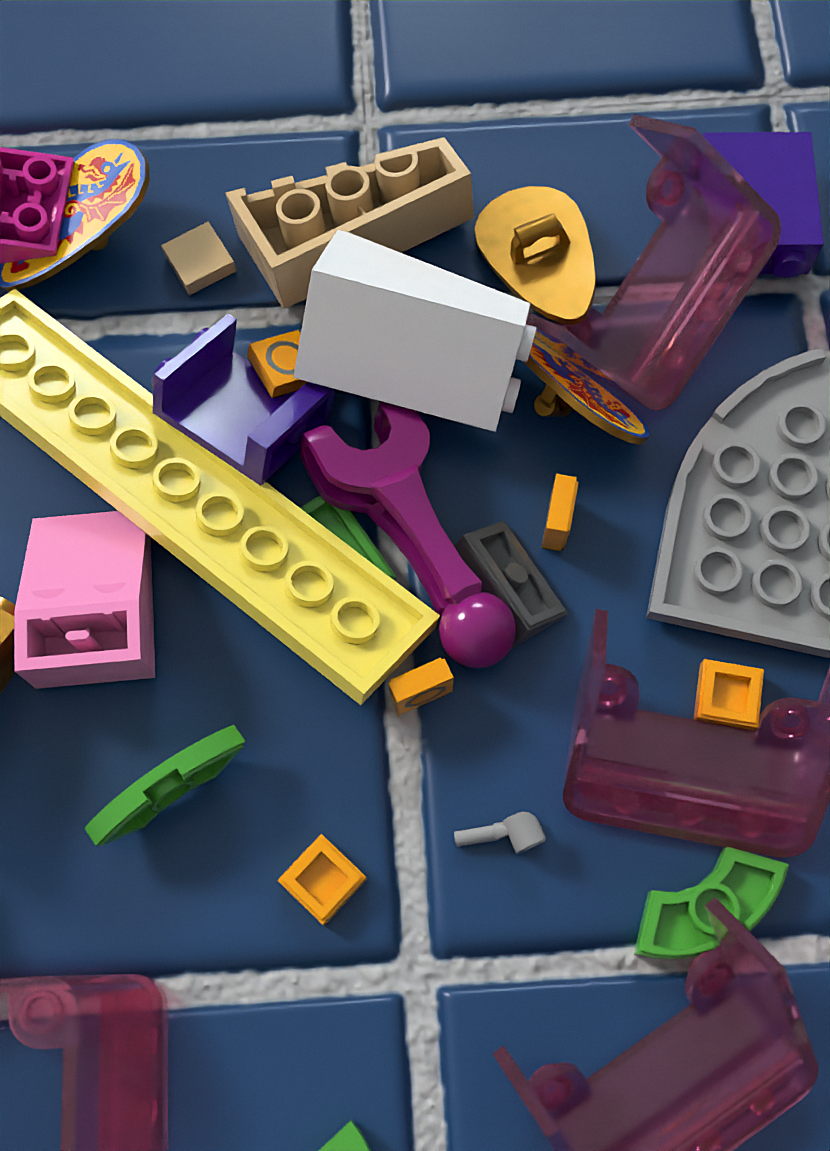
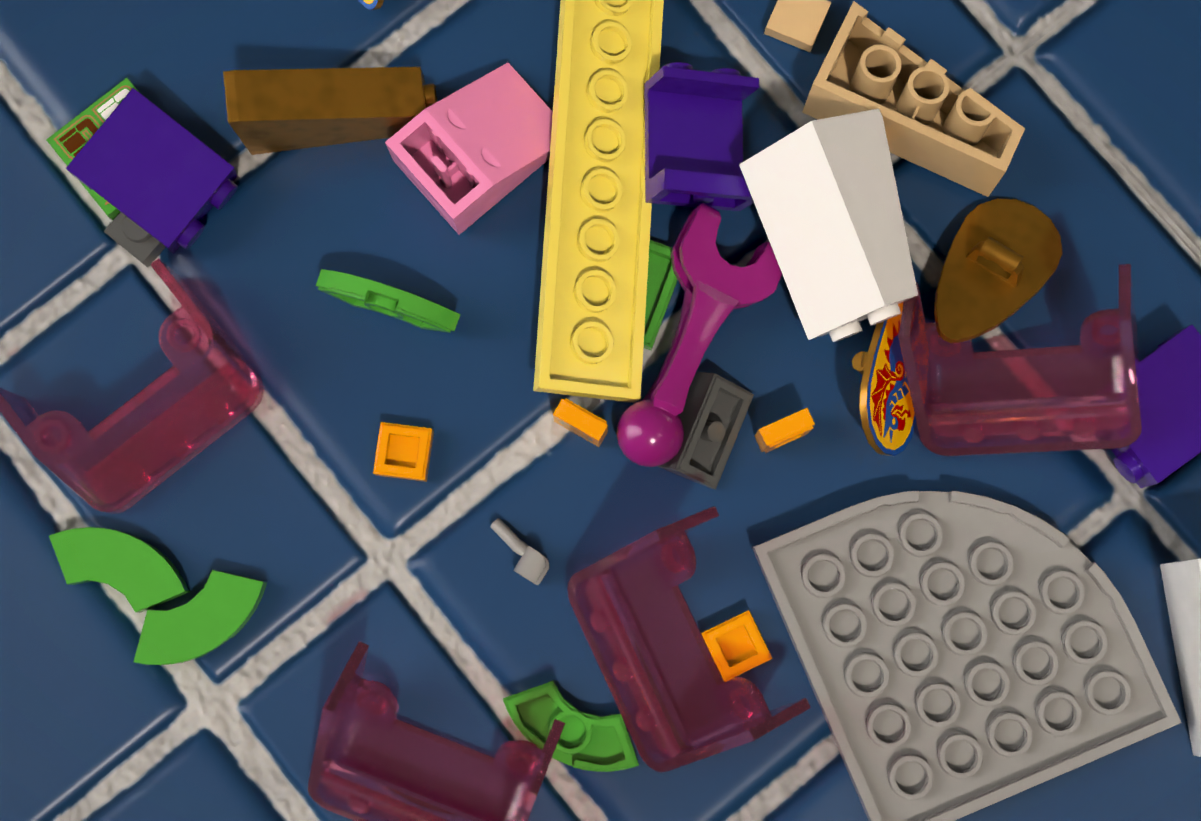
camera: 55 degrees right, 10 degrees up
(275, 362) = (751, 137): light orange tile -> none

